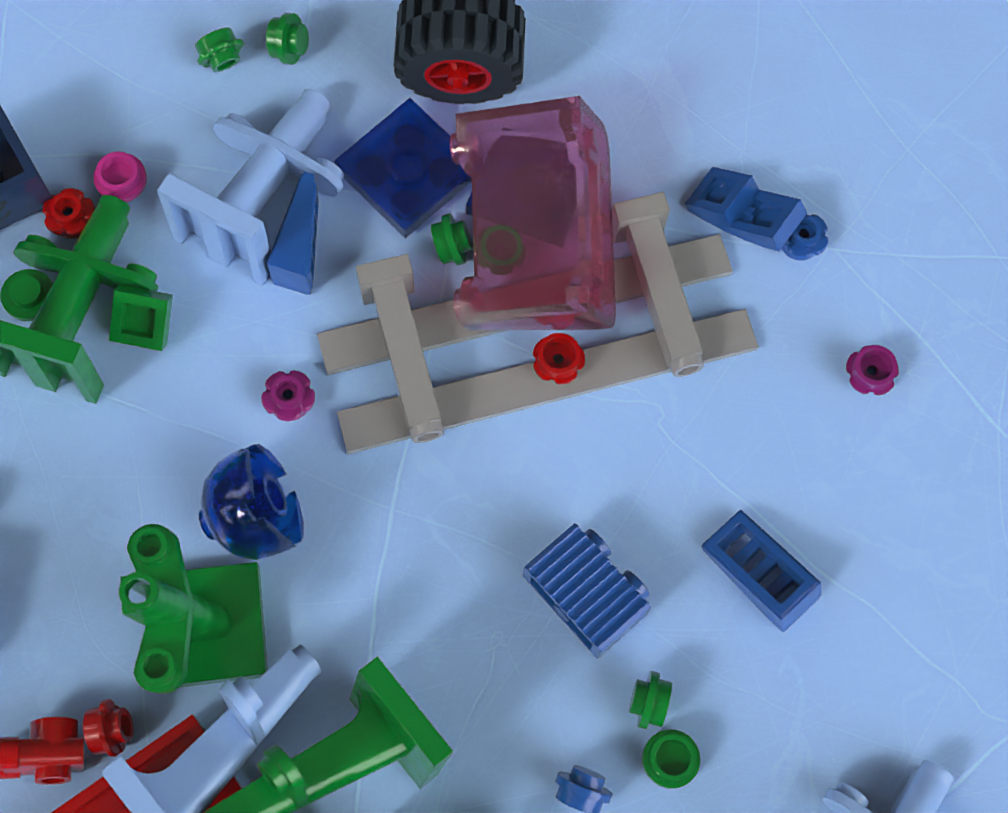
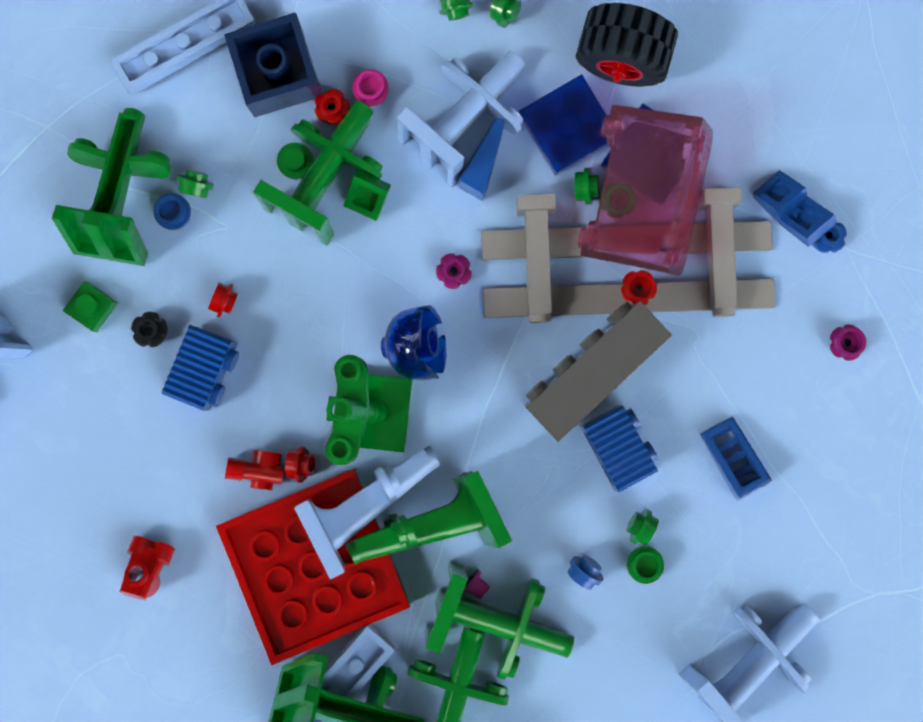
camera: 15 degrees right, 15 degrees up
(521, 478) = (597, 370): none -> dark grey brick

